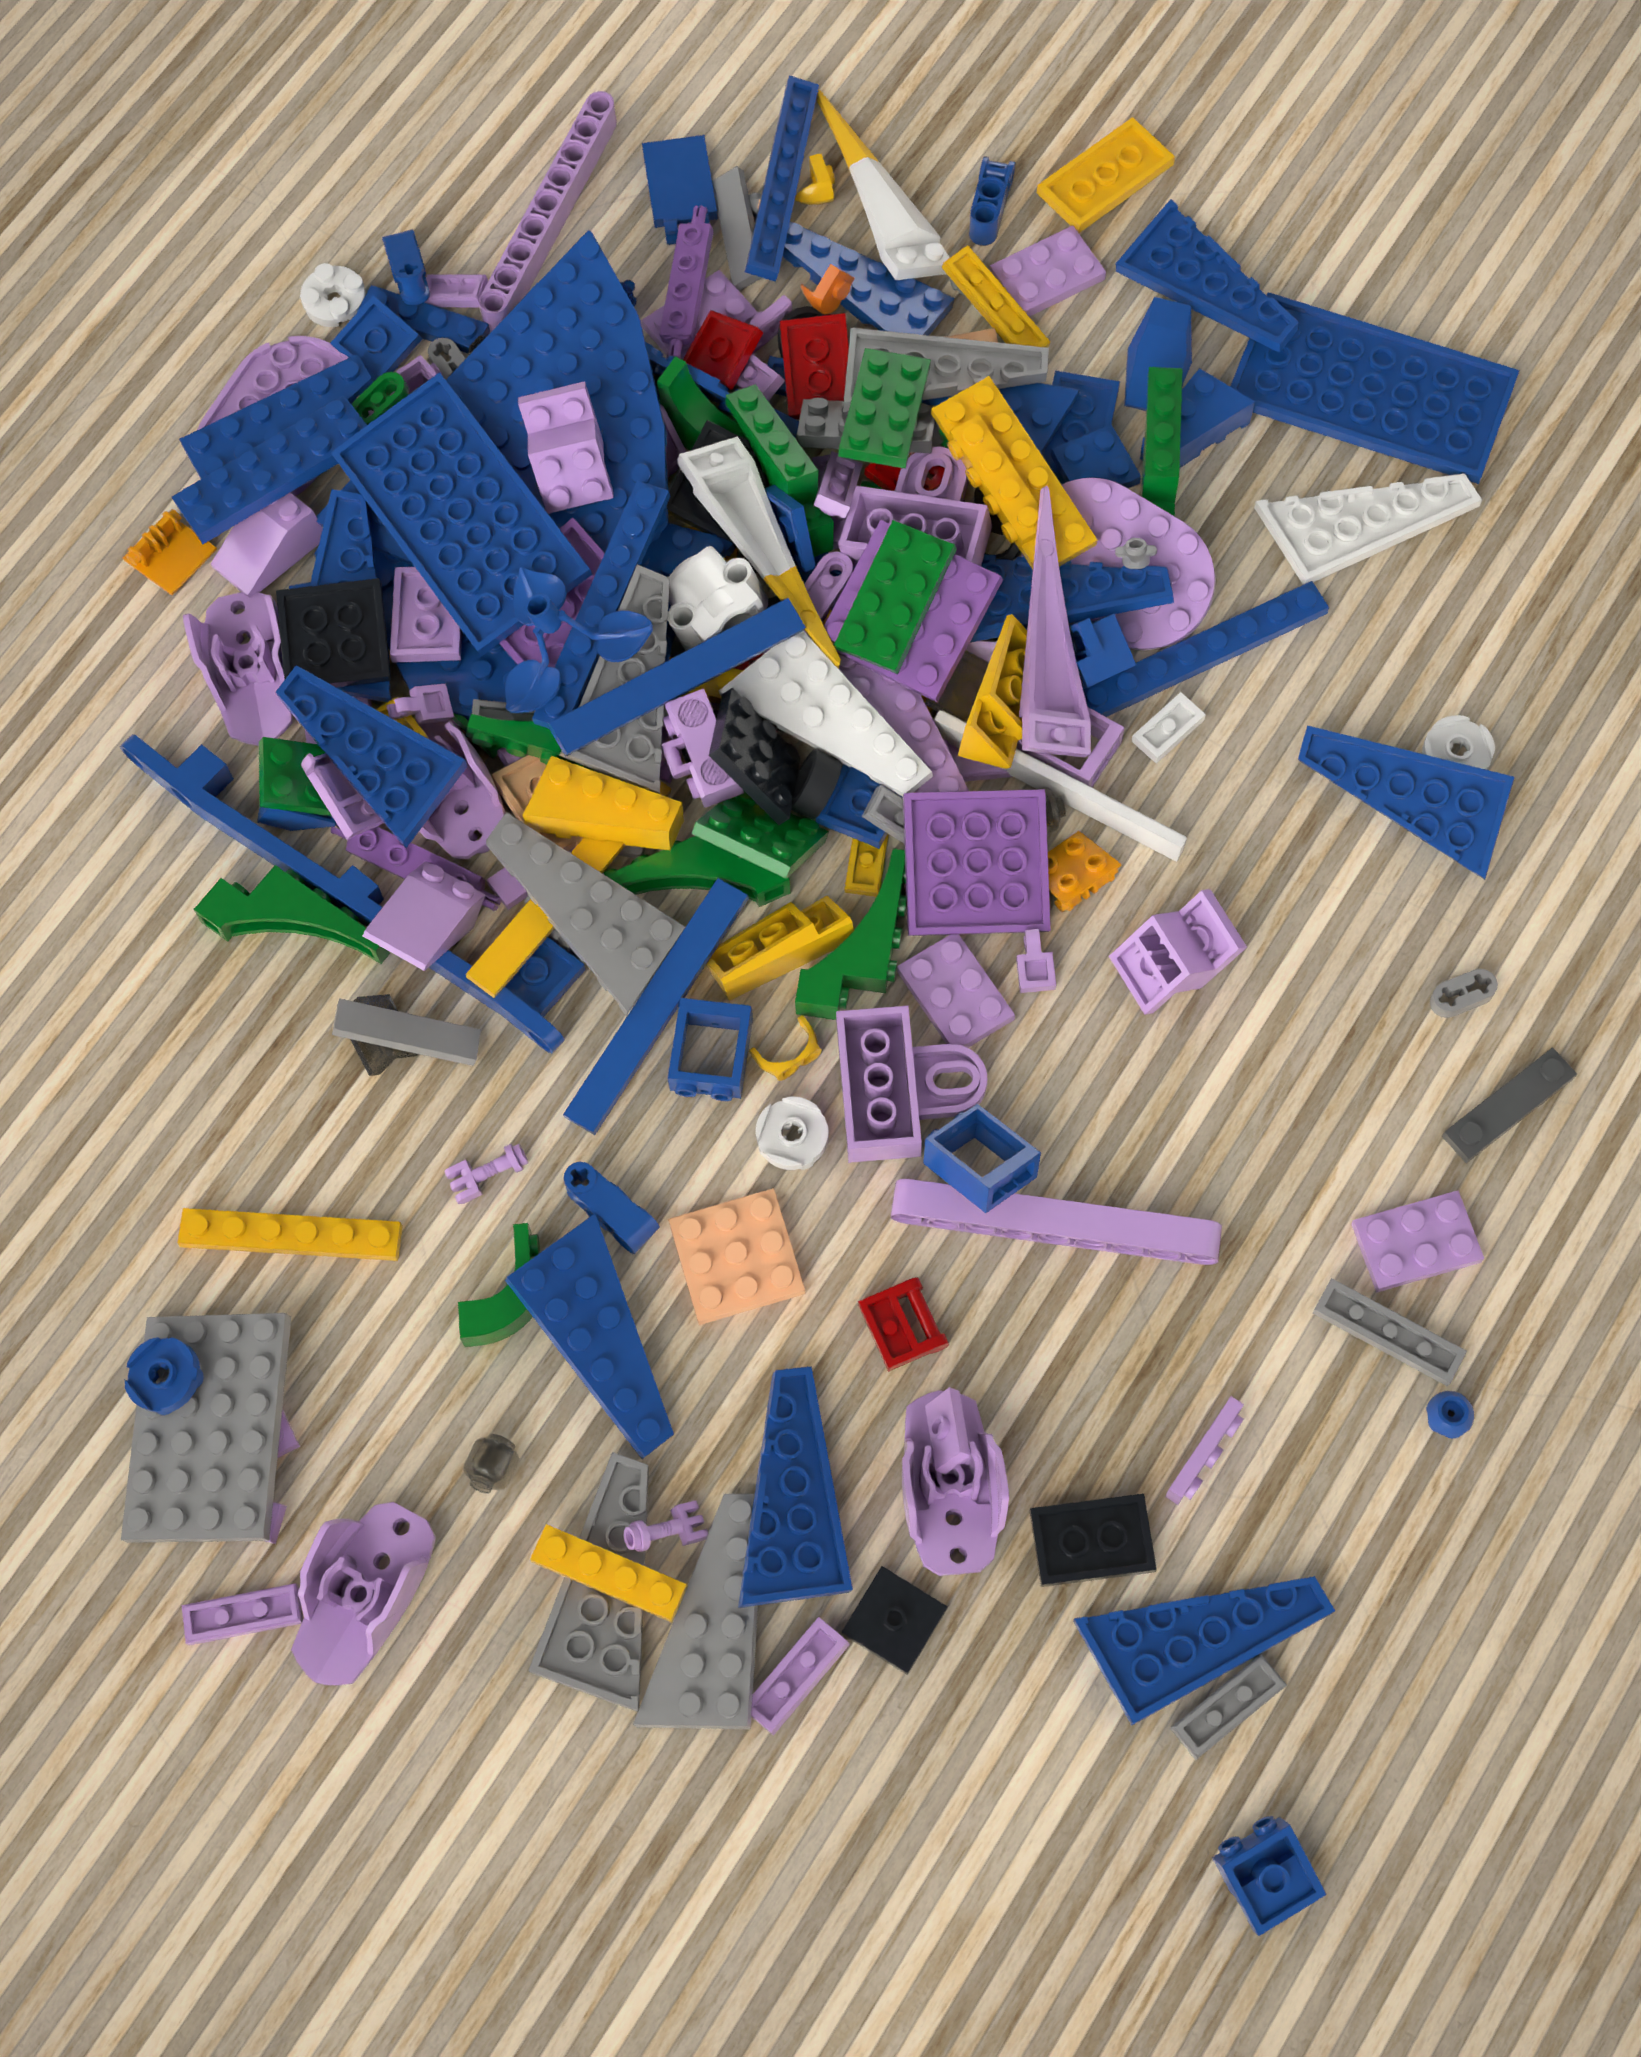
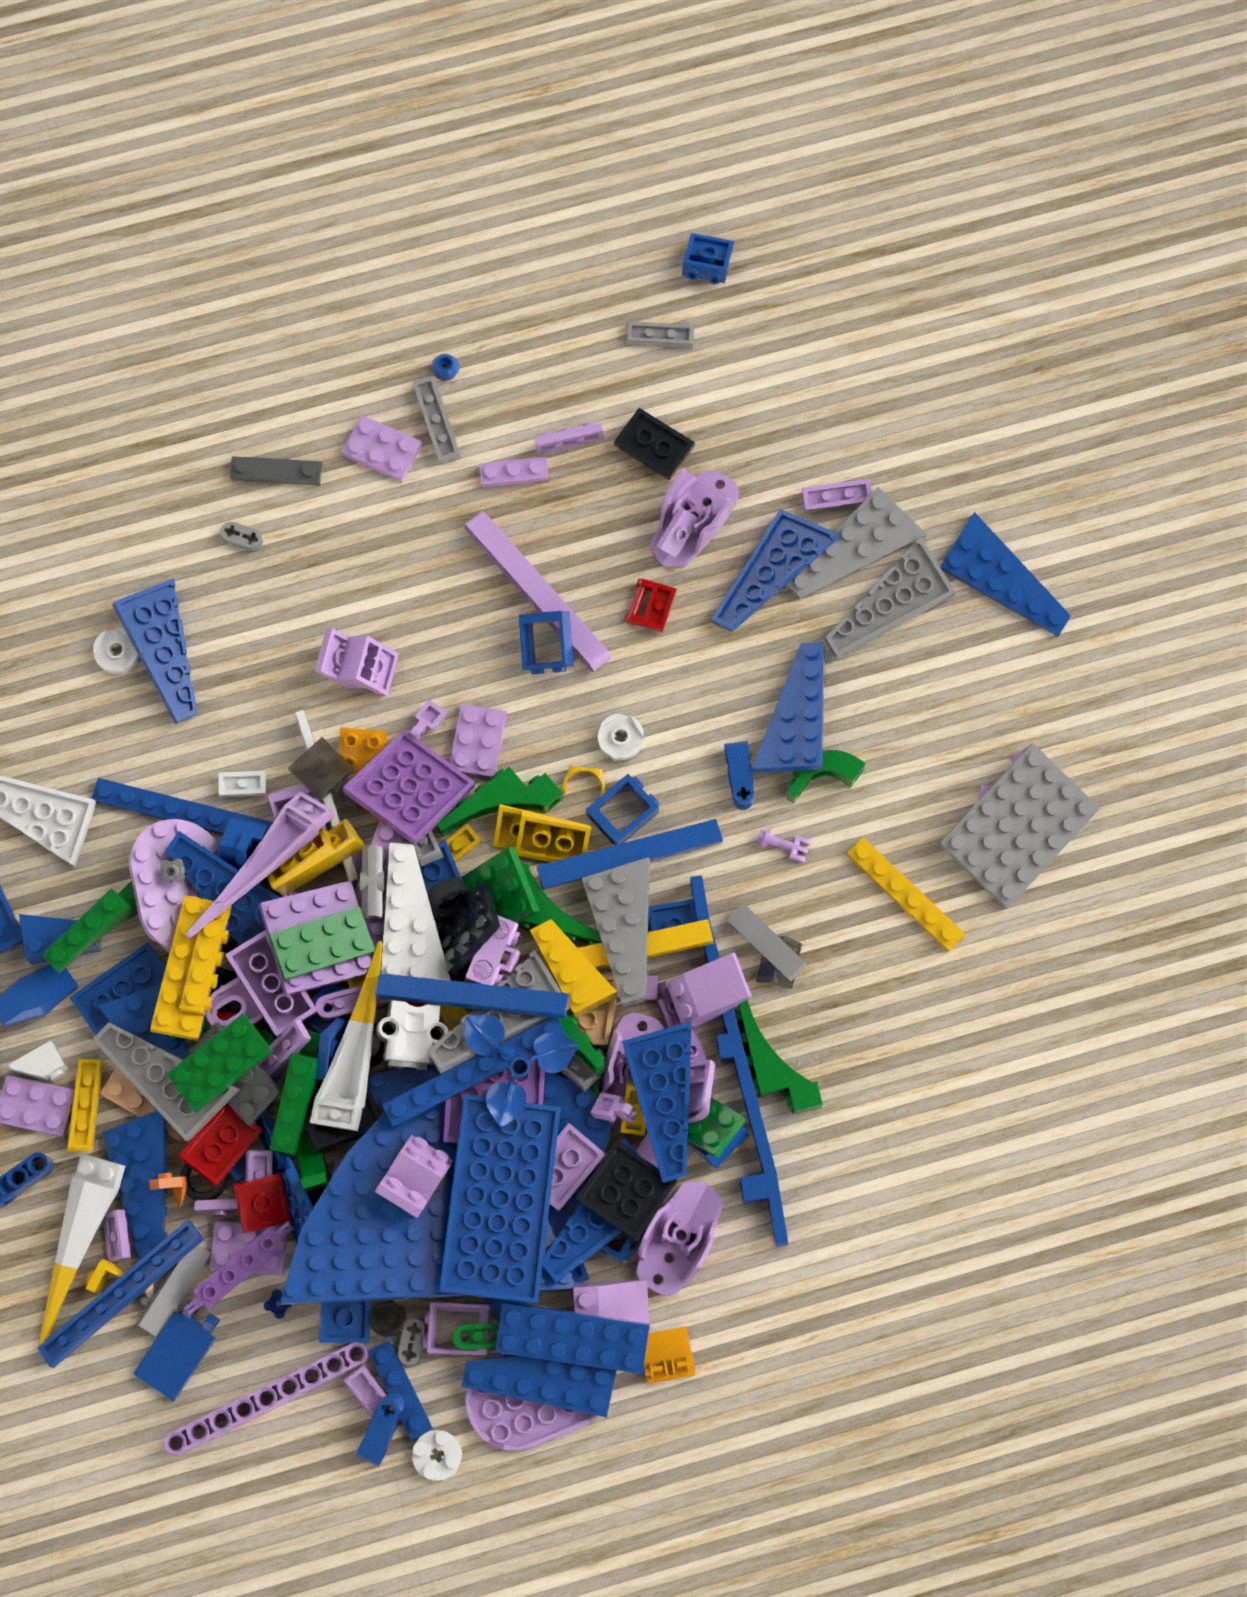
camera: 140 degrees left, 5 degrees up
(181, 1383) = (1031, 851): blue plate -> none
(242, 1614) = (1067, 729): lavender tile -> none
(349, 1599) = (1006, 681): lavender piece -> none
(377, 338) = (440, 1392): blue plate -> none
(491, 1463) = (897, 698): clear smoke head -> none
(505, 1753) = (993, 570): none -> blue wing
(608, 1573) = (884, 602): yellow plate -> none
(639, 1535) = (857, 603): lavender hinge -> none
(736, 1256) = (699, 702): light nougat plate -> none
(834, 221) = (116, 1236): none -> lavender plate
(892, 1084) = (554, 715): lavender brick -> none
(894, 1620) = (772, 484): black plate -> none
(909, 715) = (372, 882): none -> light grey piece
(1080, 306) = (41, 1063): none -> white slope
(1091, 792) = (321, 769): none -> clear smoke plate
(1096, 456) = (133, 956): blue plate -> none
(1181, 1645) = (657, 371): blue wing -> none
(1230, 1351) = (514, 472): none -> lavender plate

